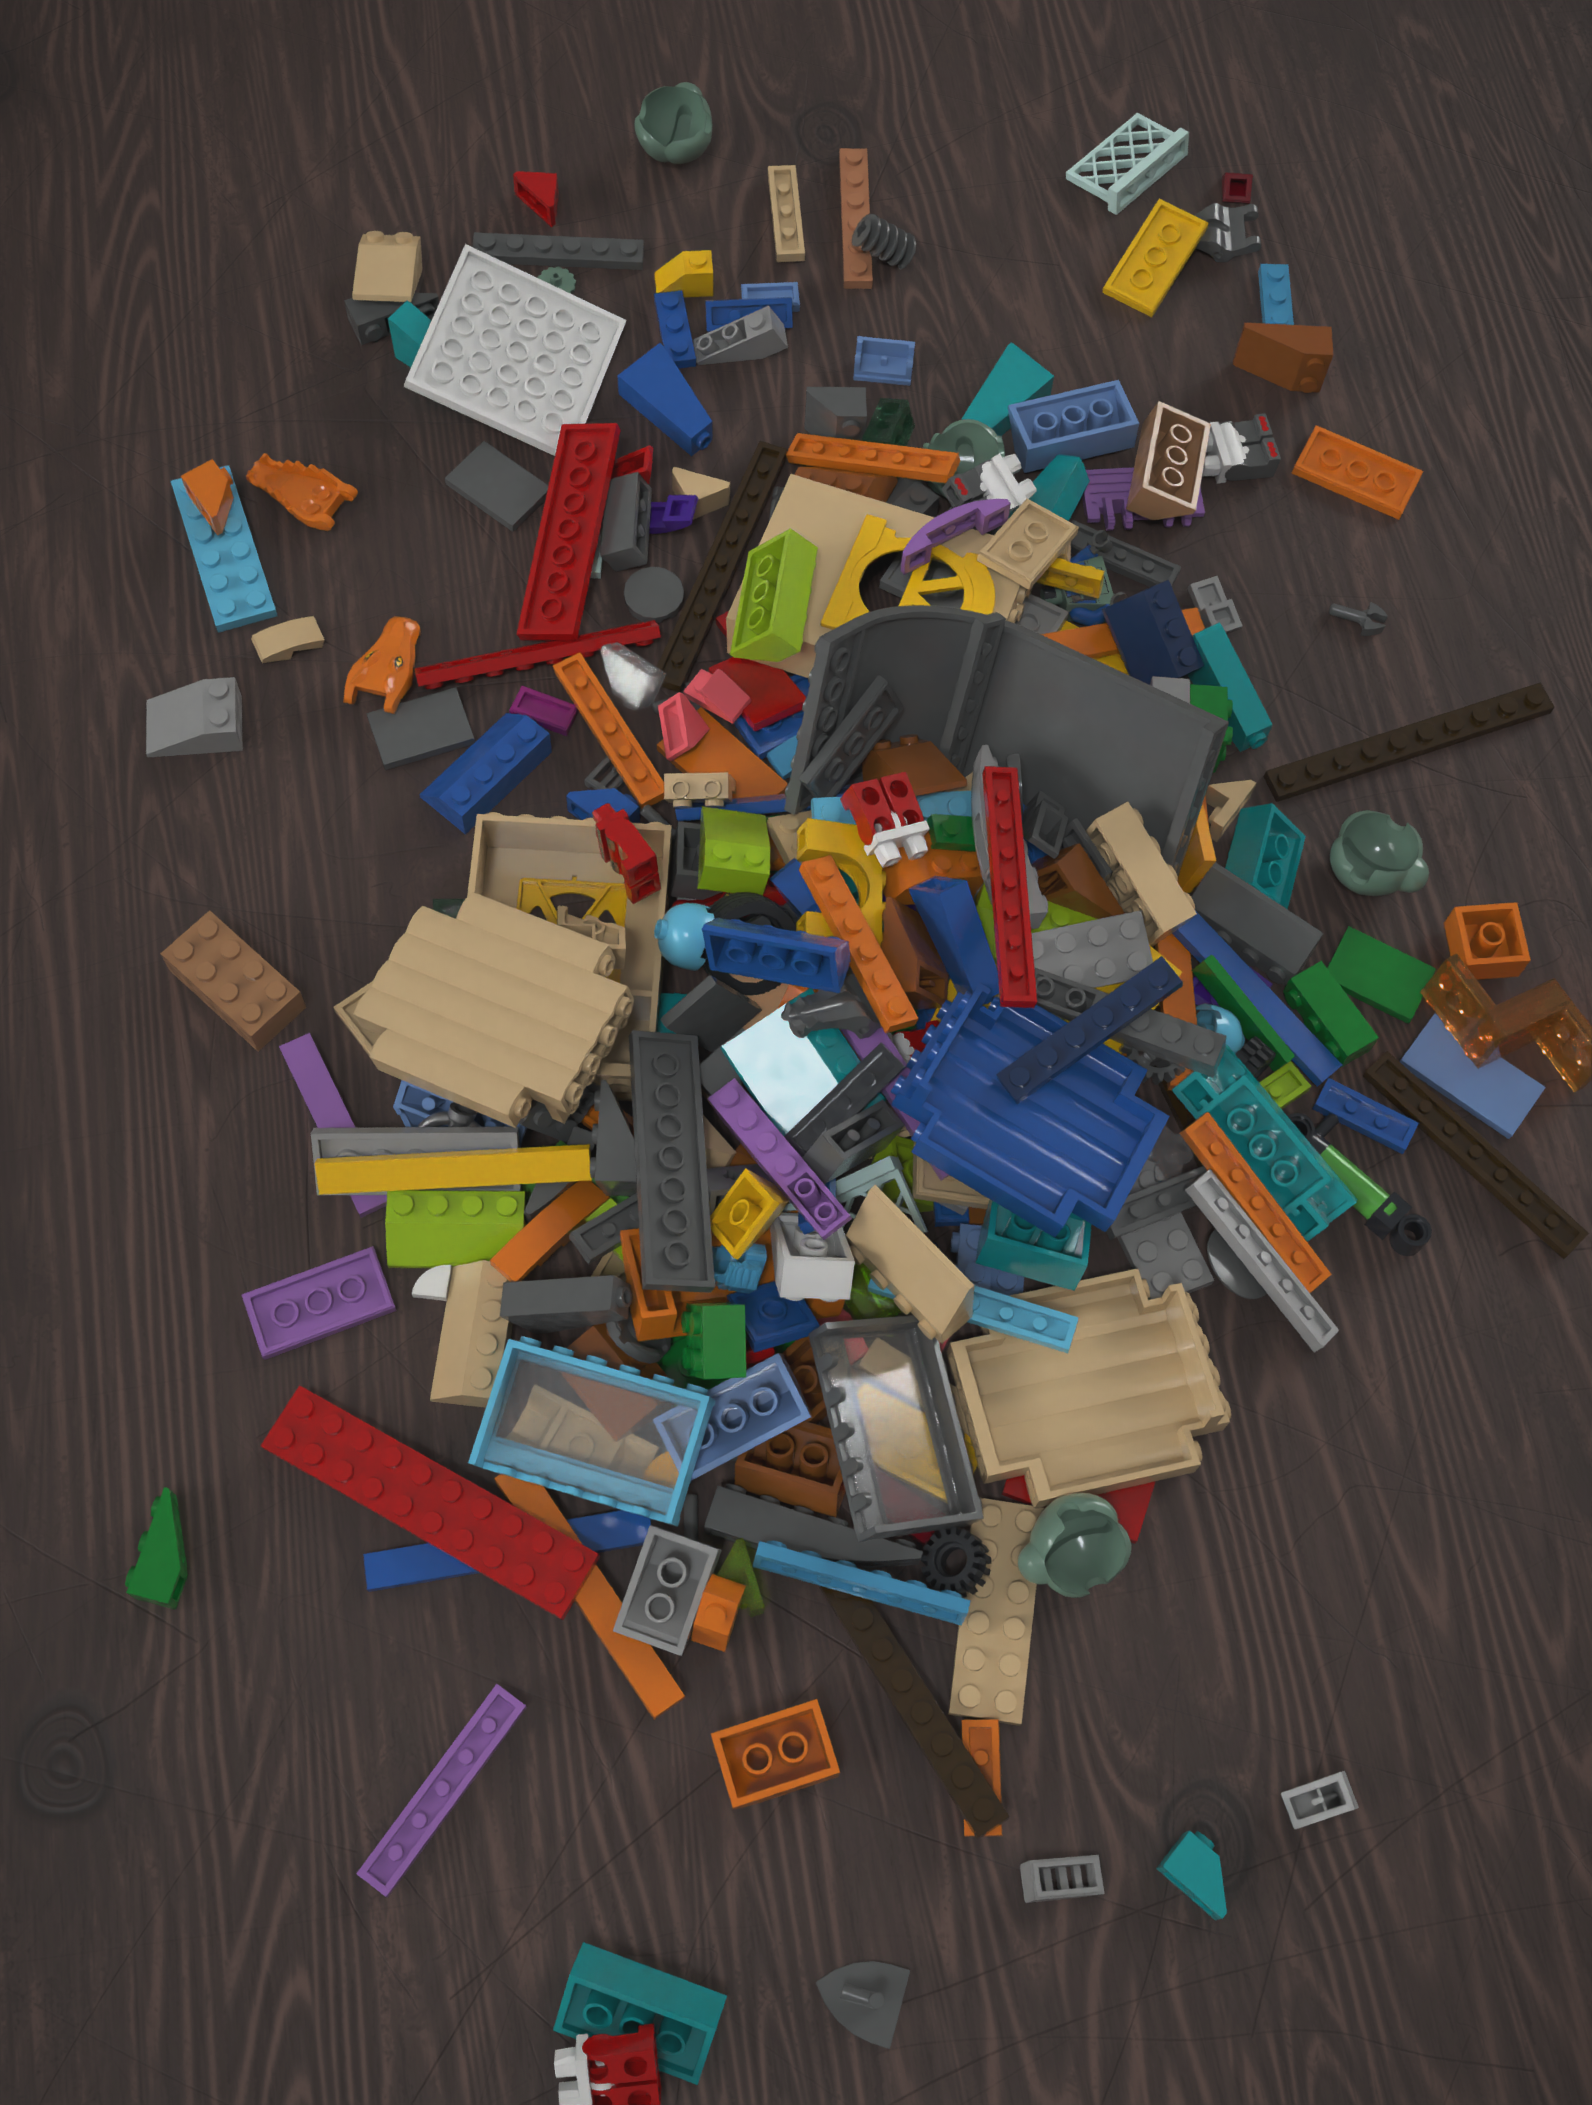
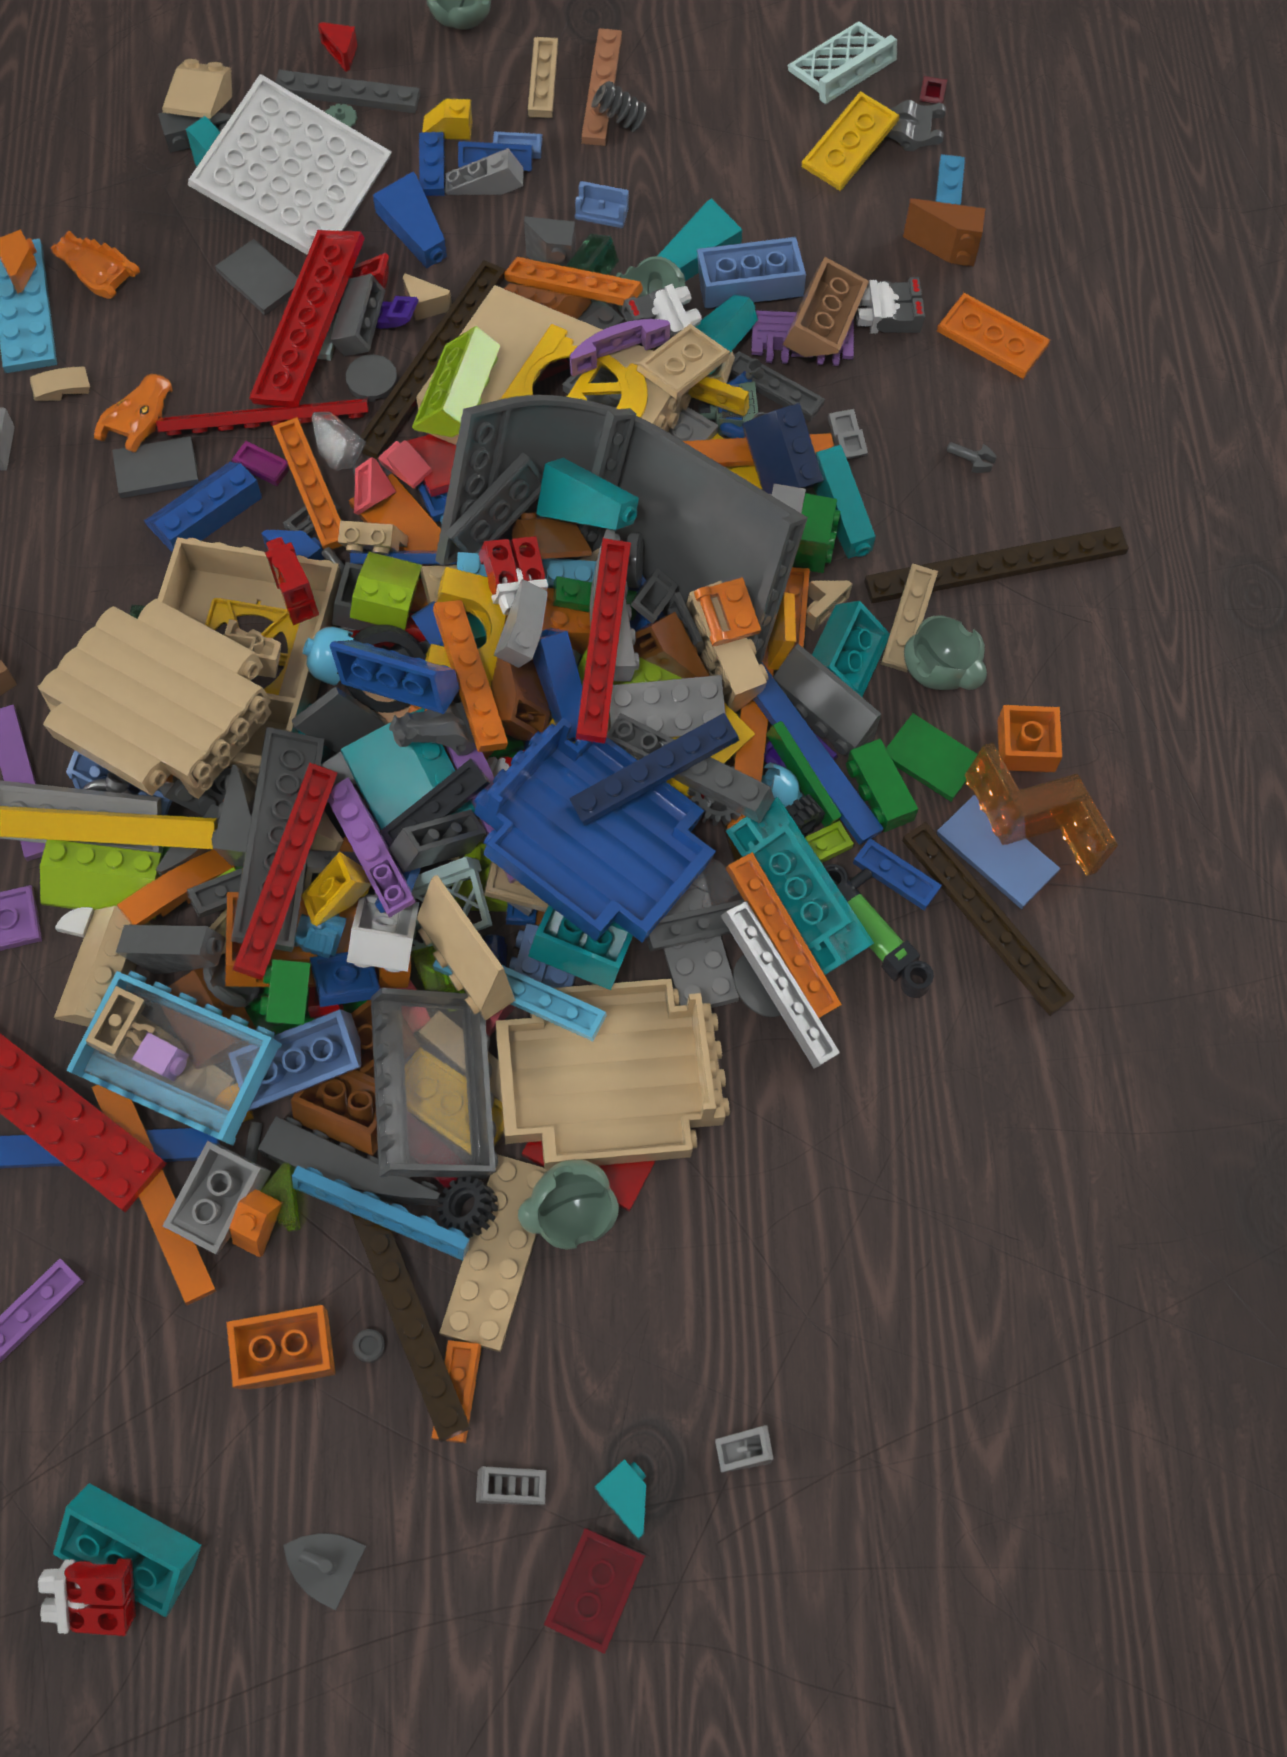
camera: 10 degrees right, 0 degrees up
(521, 1399) = (117, 1022): none -> tan brick
(579, 1434) = (161, 1057): none -> lavender brick
(691, 1200) = (285, 872): none -> red plate
(869, 1738) = (368, 1346): none -> dark grey tile
(913, 879) = (523, 625): none -> light grey slope
(951, 720) = (583, 497): none -> teal slope
(1151, 833) = (736, 610): none -> orange plate
(1180, 1985) = (594, 1591): none -> dark red plate
(1324, 813) = (909, 614): none -> tan tile

